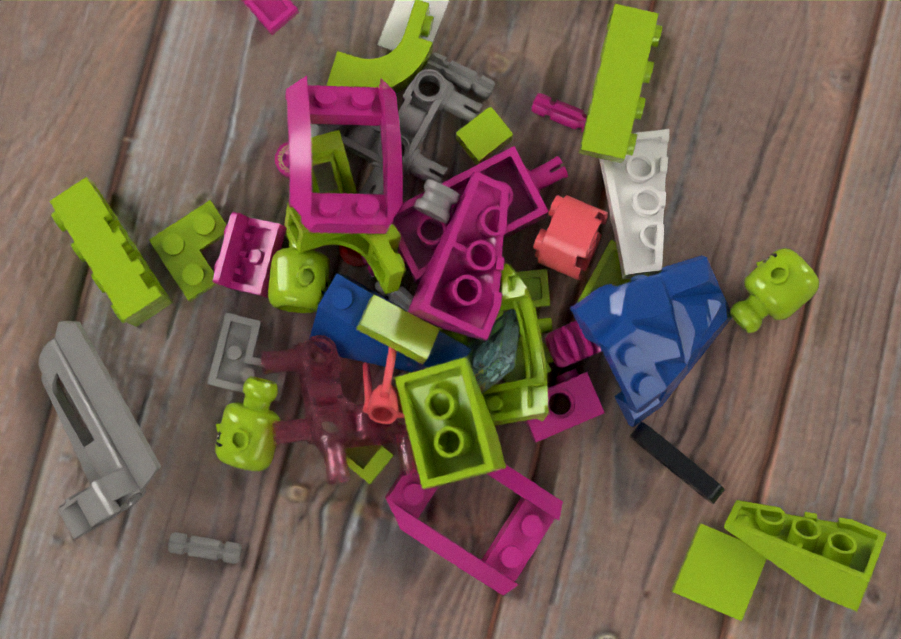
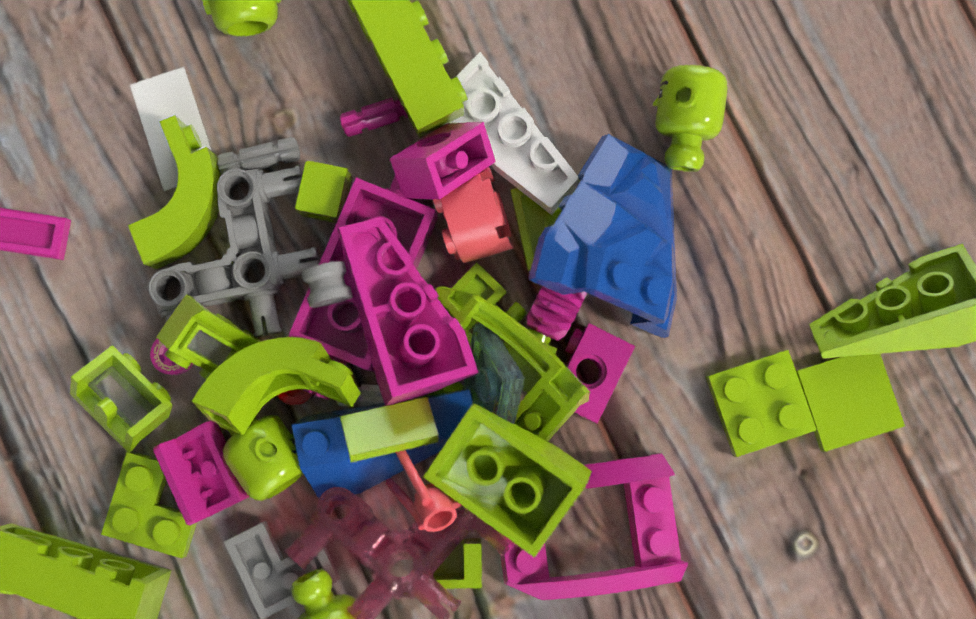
camera: 35 degrees left, 0 degrees up
(236, 161) = (120, 397): none -> lime window
(343, 106) = (172, 269): dark pink wedge -> none
(581, 183) = (443, 160): none -> dark pink brick
(657, 524) = (761, 403): none -> lime plate
(677, 462) = (733, 335): black beam -> none

